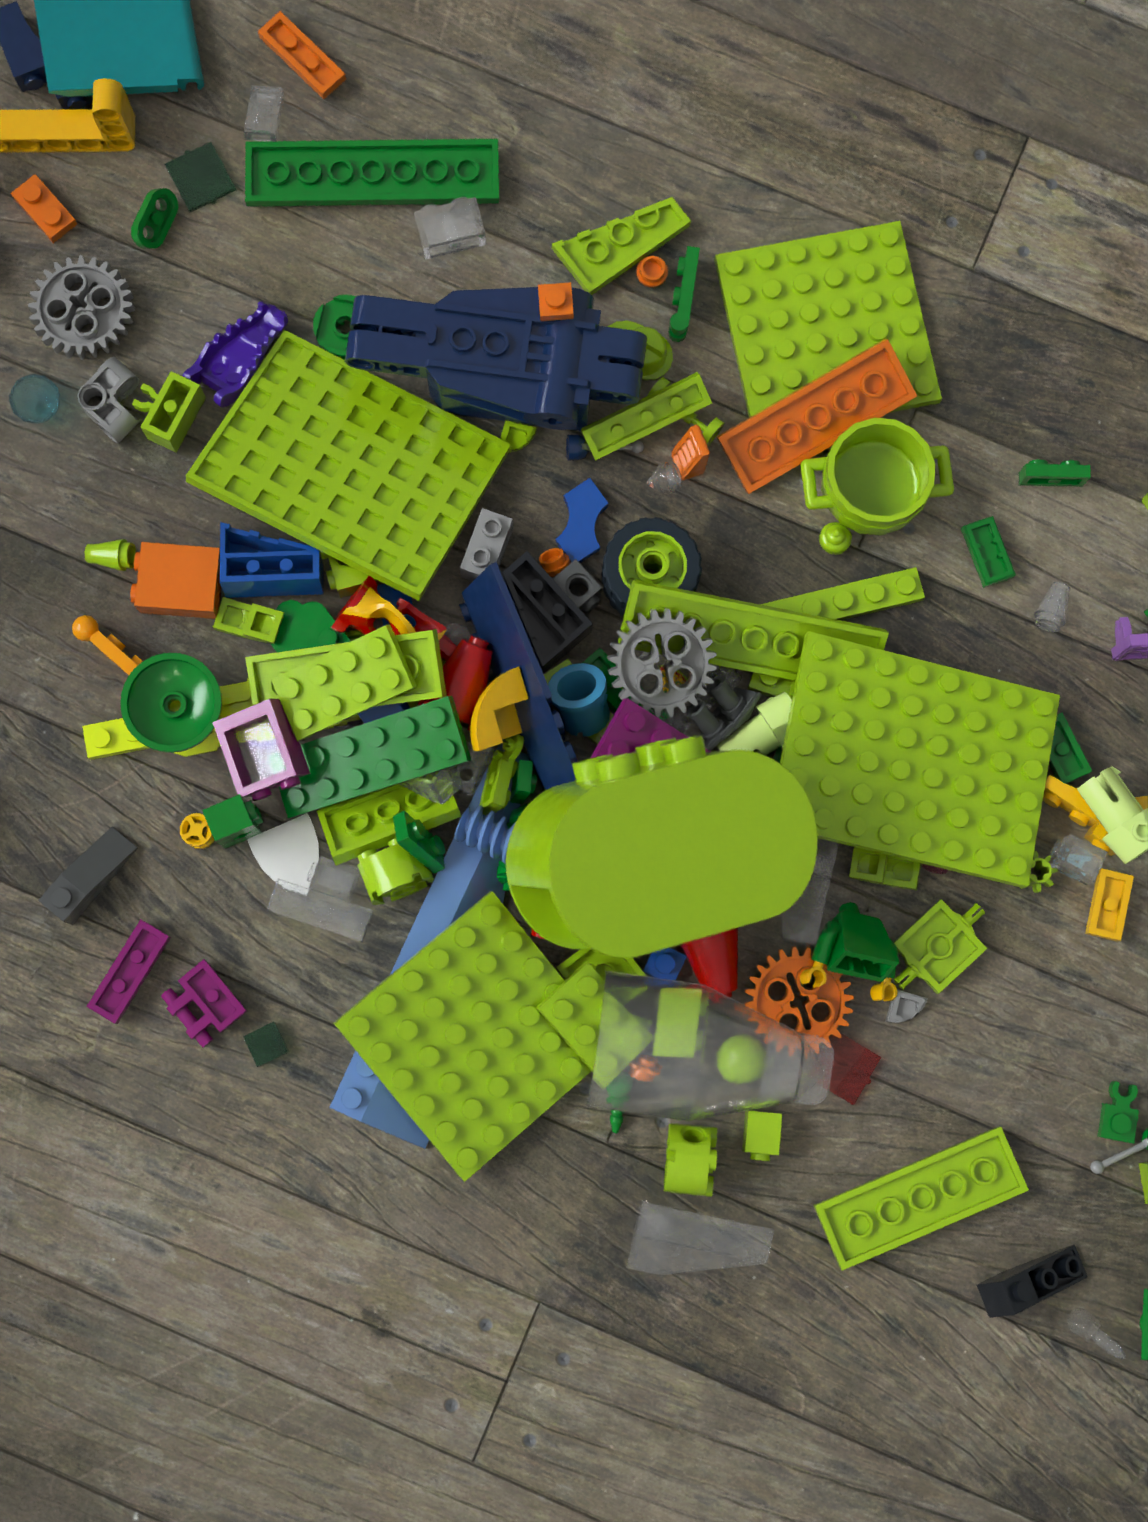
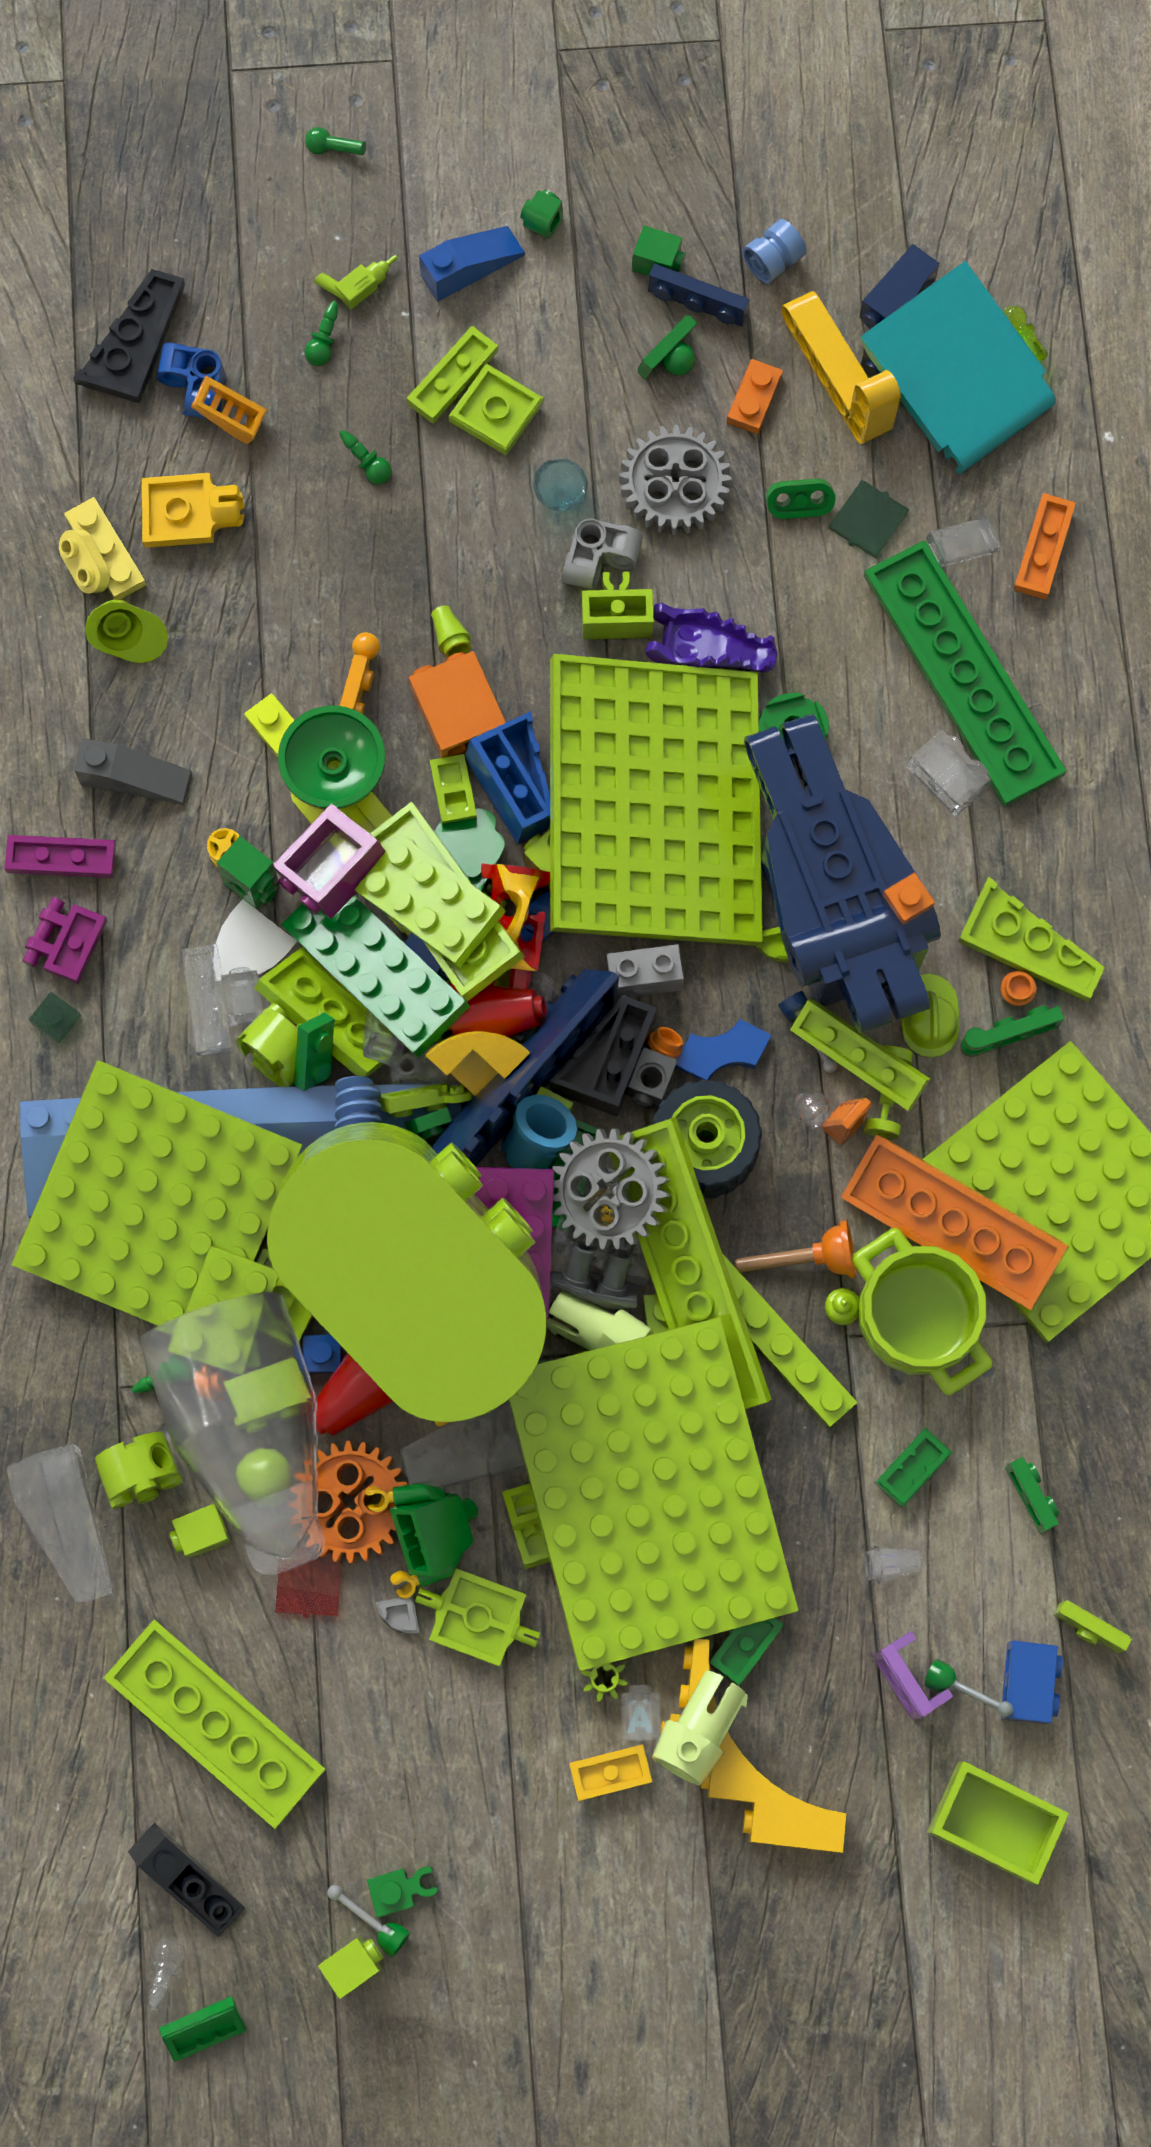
camera: 65 degrees right, 5 degrees down
(791, 519) = (833, 1251): none -> piece

